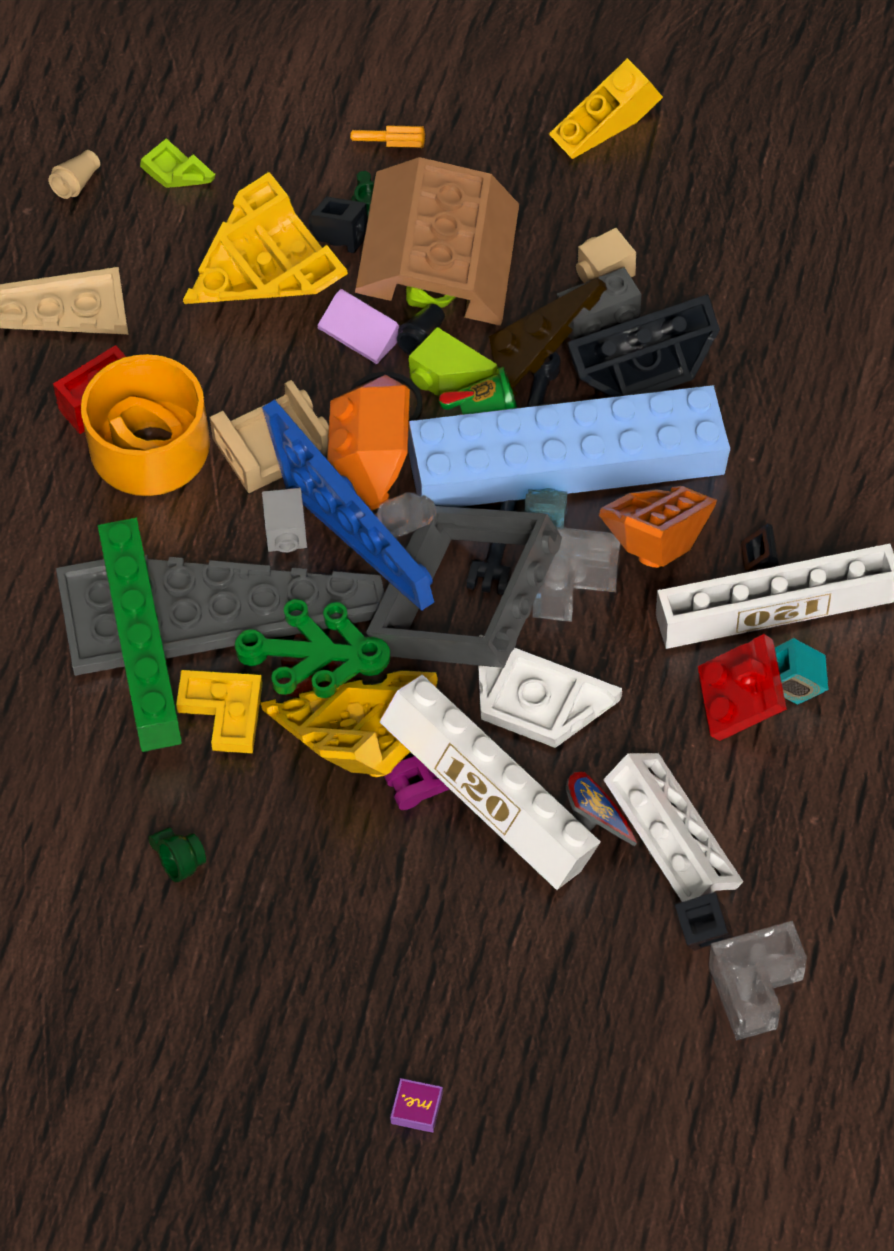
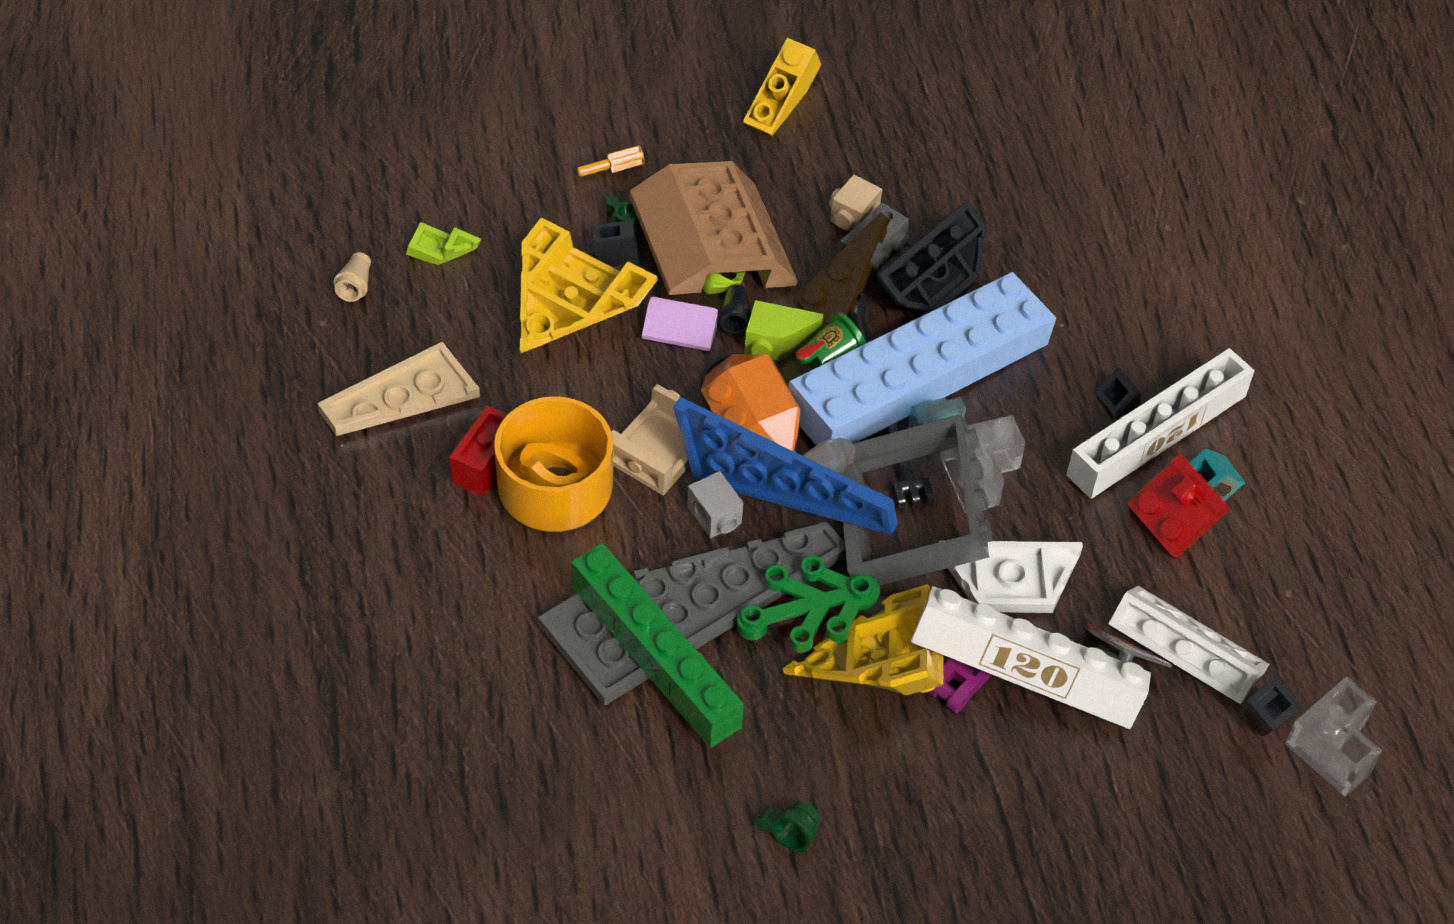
camera: 30 degrees left, 5 degrees down
(229, 697) = (766, 677): yellow plate -> none
(658, 522) = (1033, 396): orange wedge -> none

